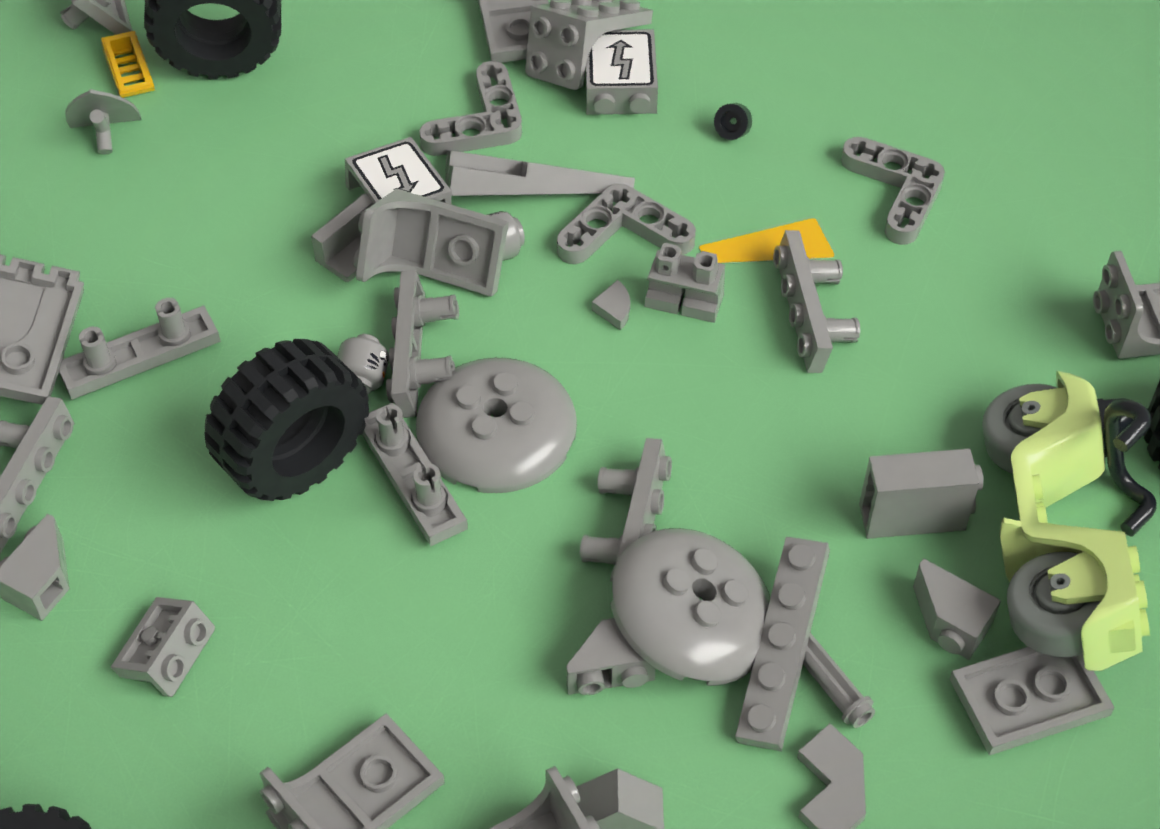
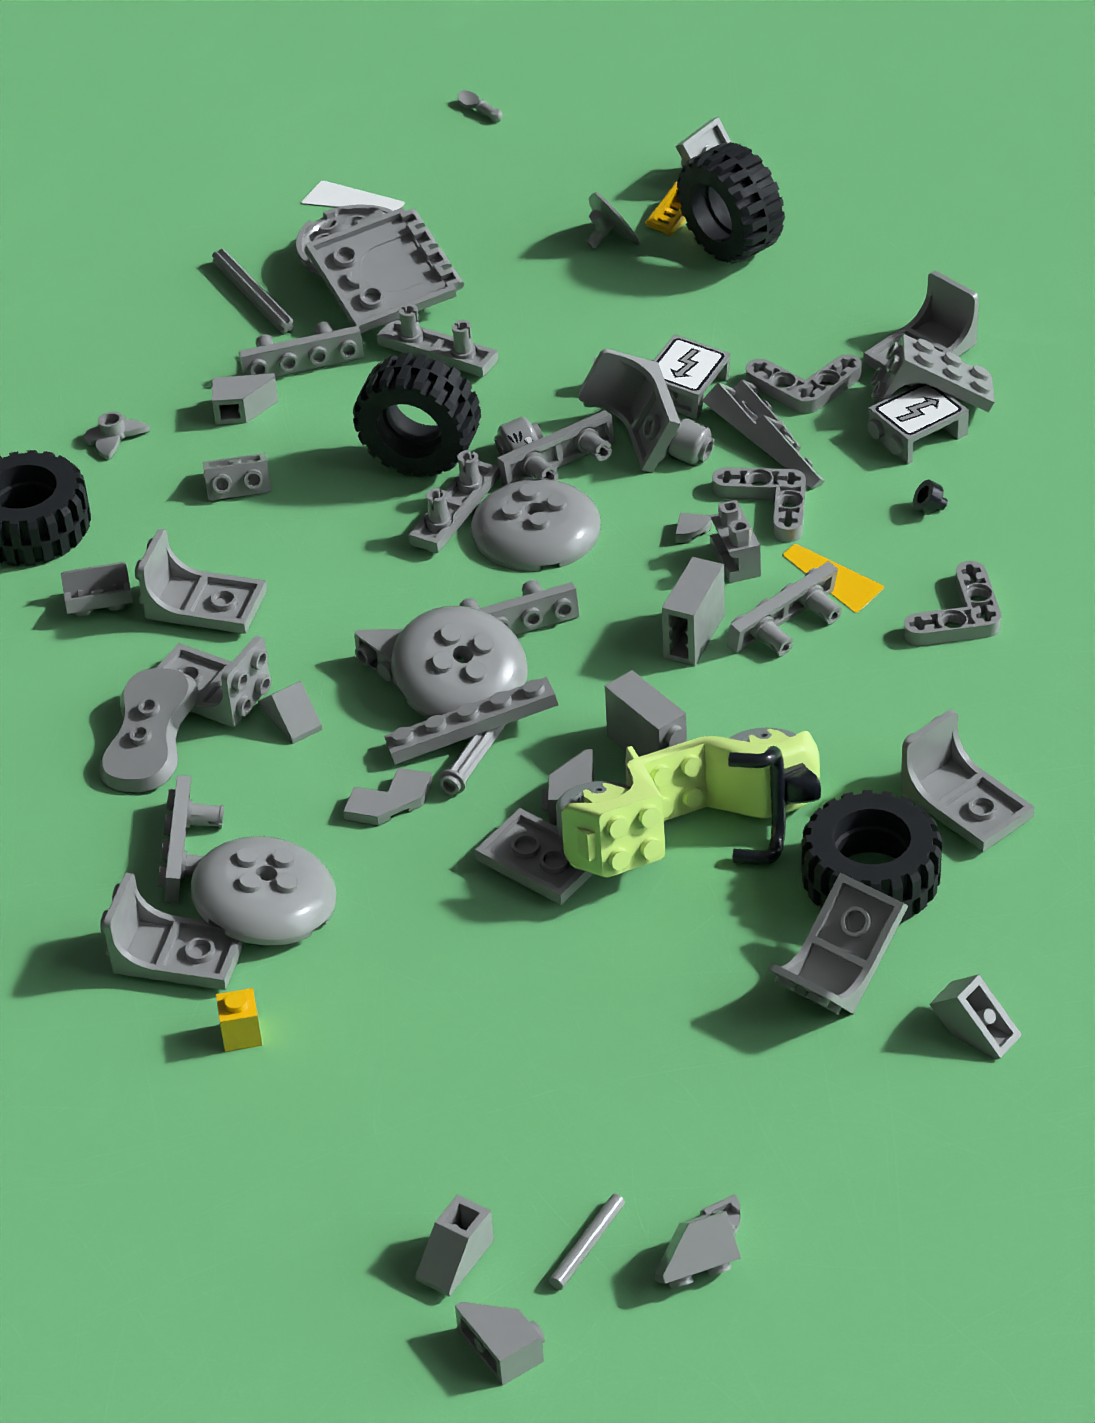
camera: 60 degrees right, 10 degrees down
(774, 365) = (693, 611): none -> light grey brick

